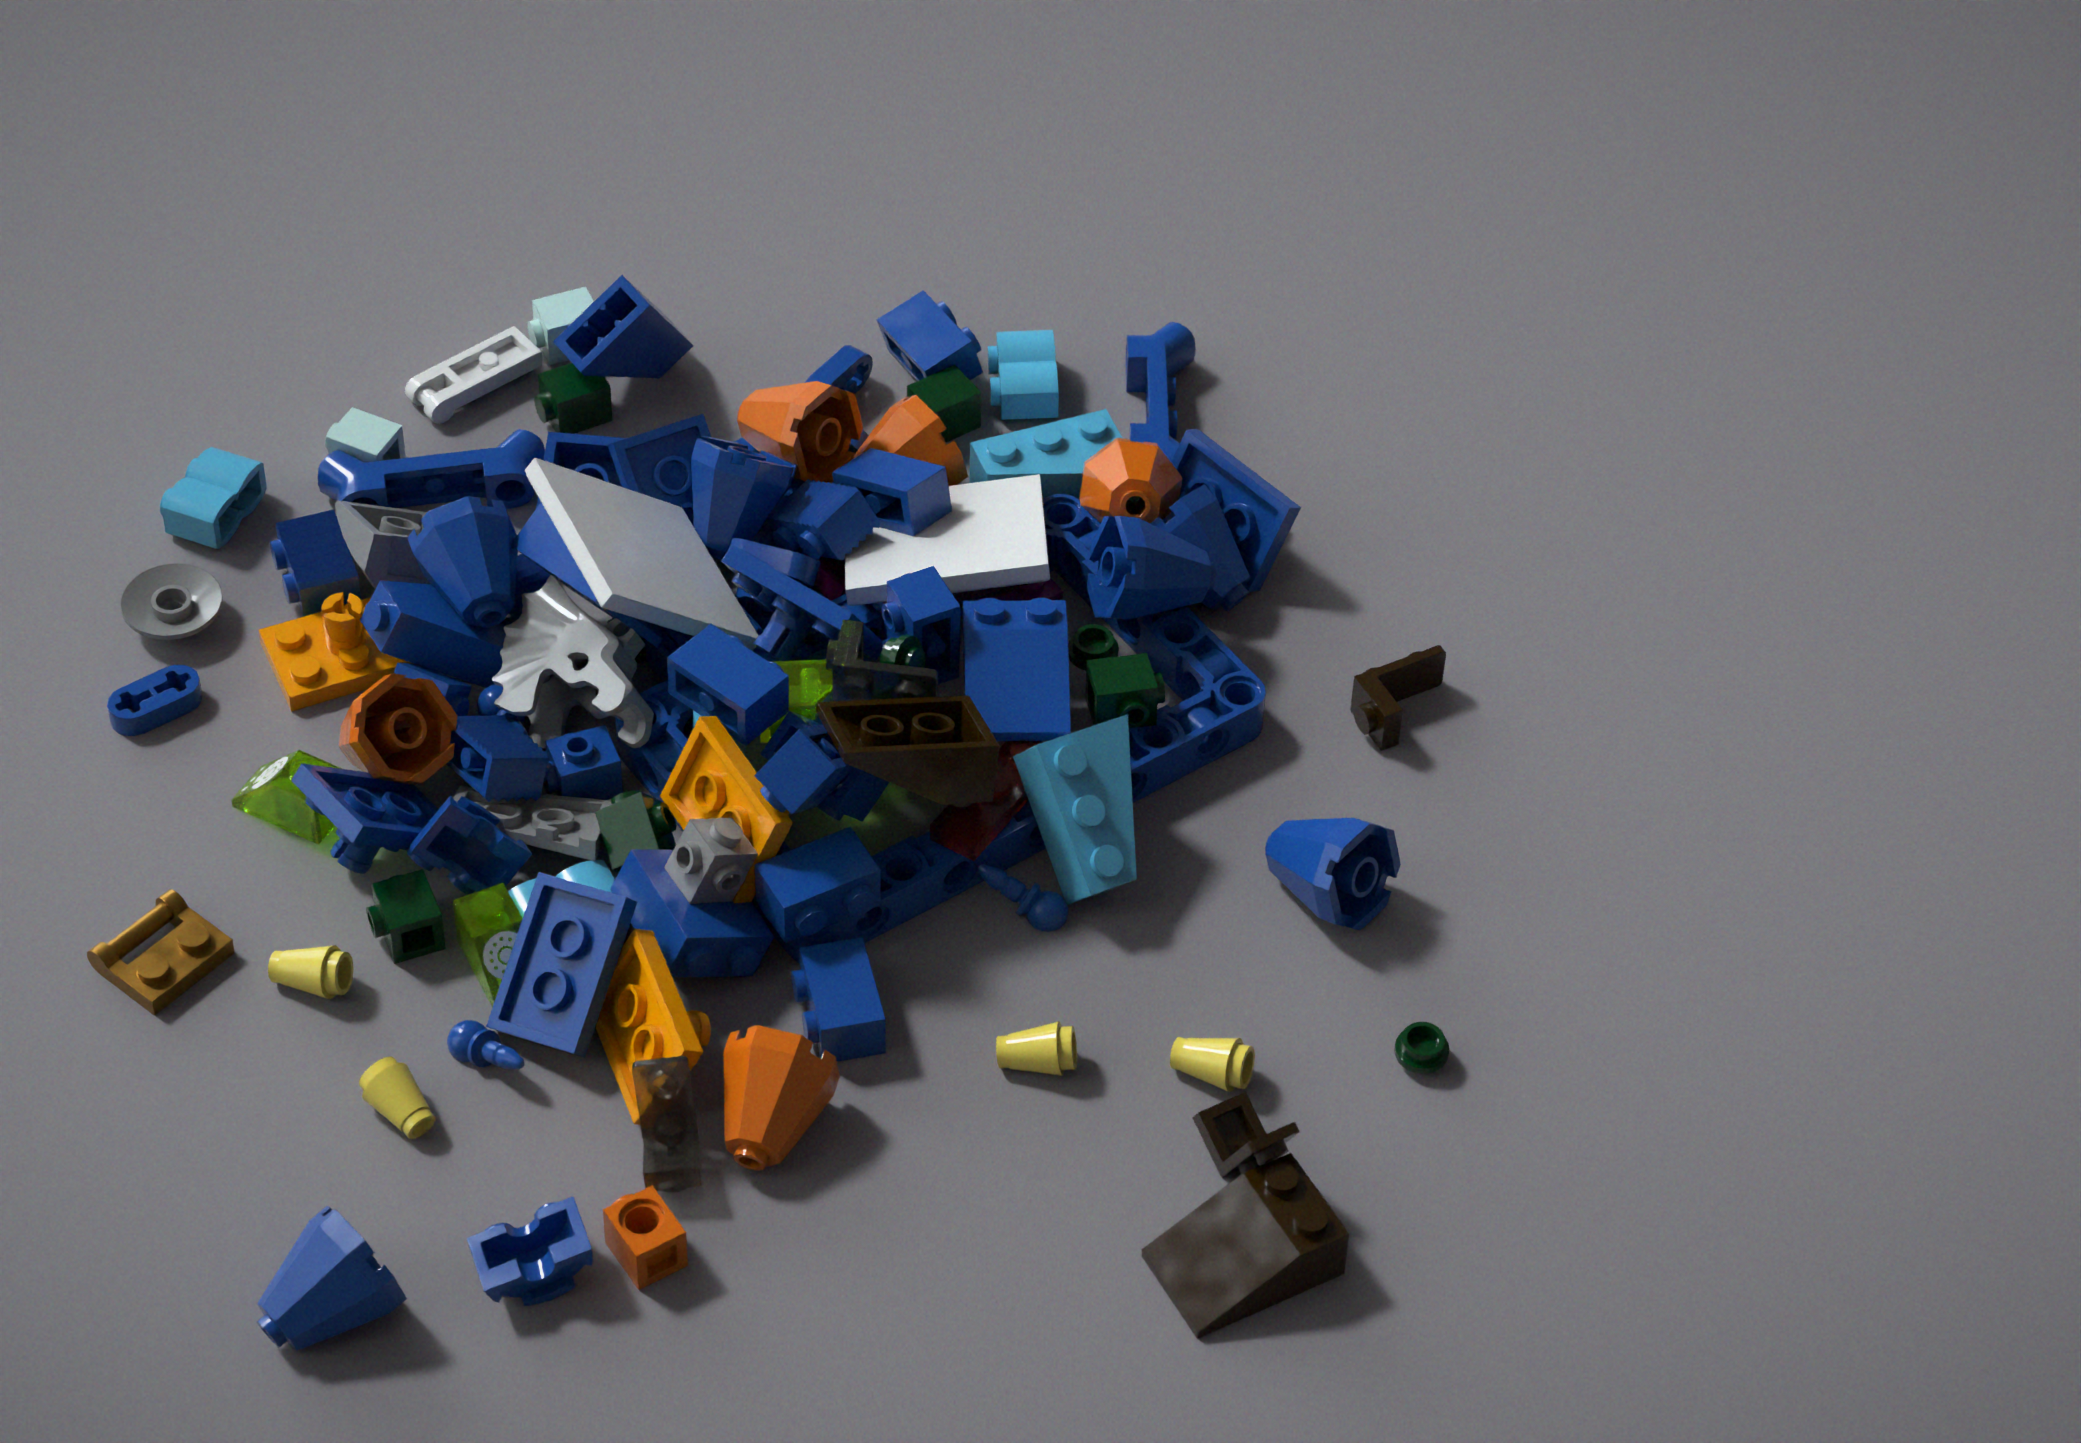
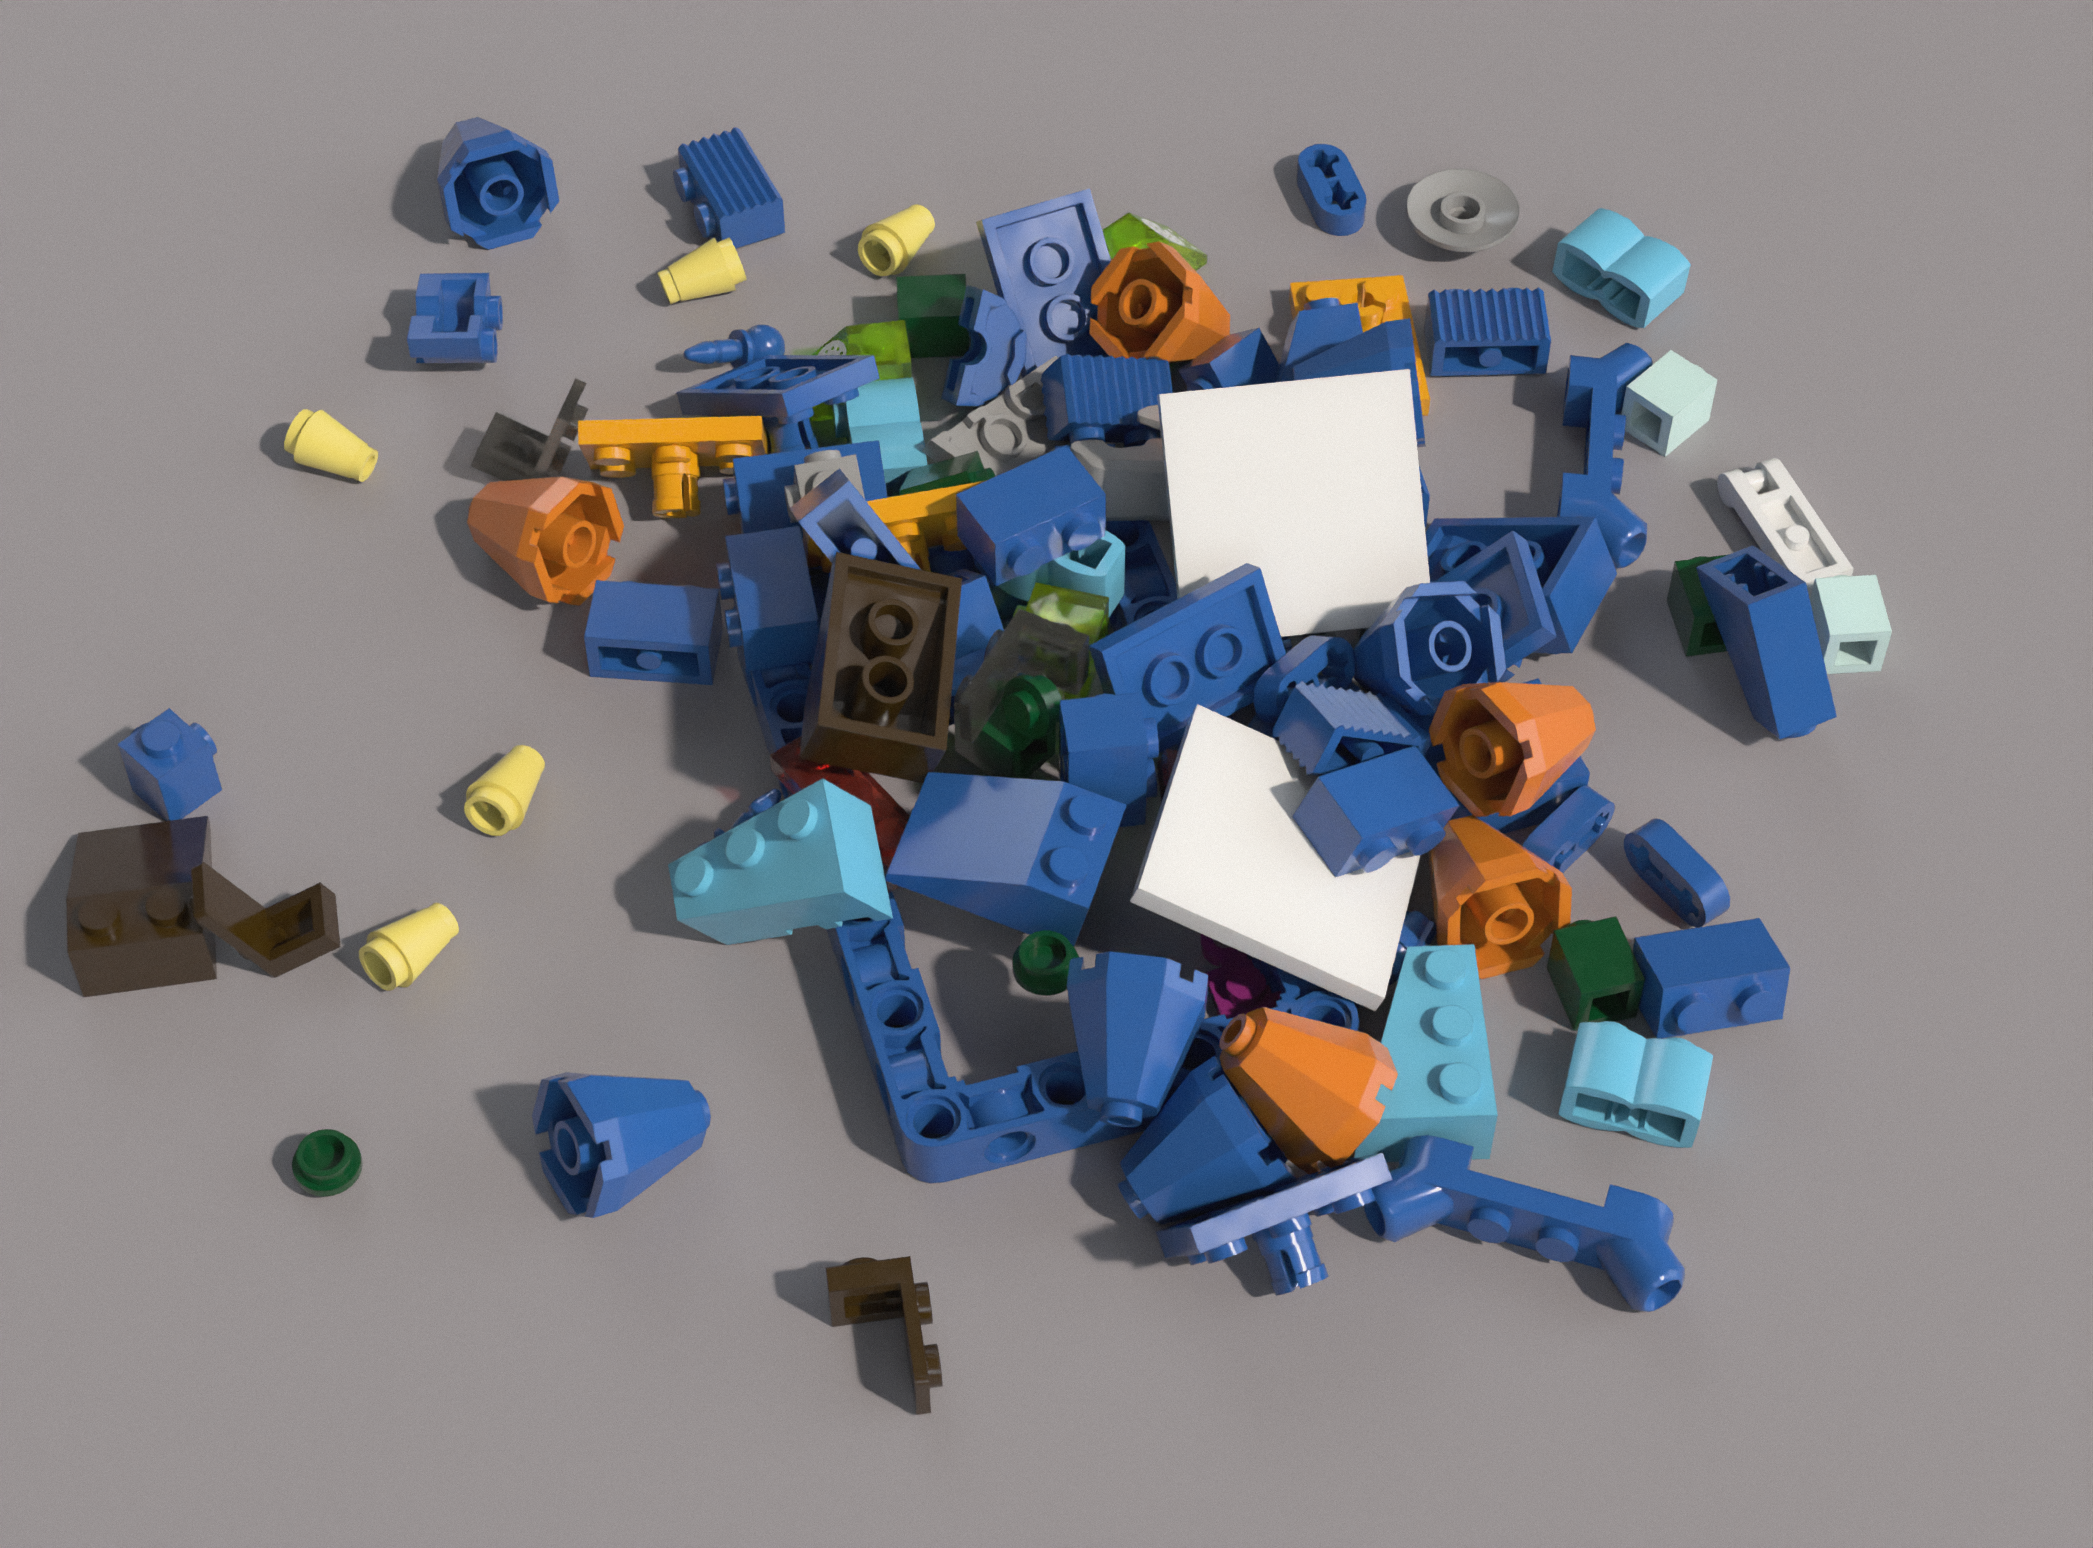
camera: 110 degrees right, 5 degrees up
(168, 965) = (965, 156): pearl gold plate -> none
(286, 1105) = (729, 189): none -> blue brick
(380, 541) = (1486, 385): light grey slope -> none
(647, 1255) = (434, 411): orange brick -> none
(710, 1306) = (329, 446): none -> light yellow cone
(1117, 1271) = (171, 765): none -> blue brick
(1123, 687) = (951, 966): dark green brick -> none

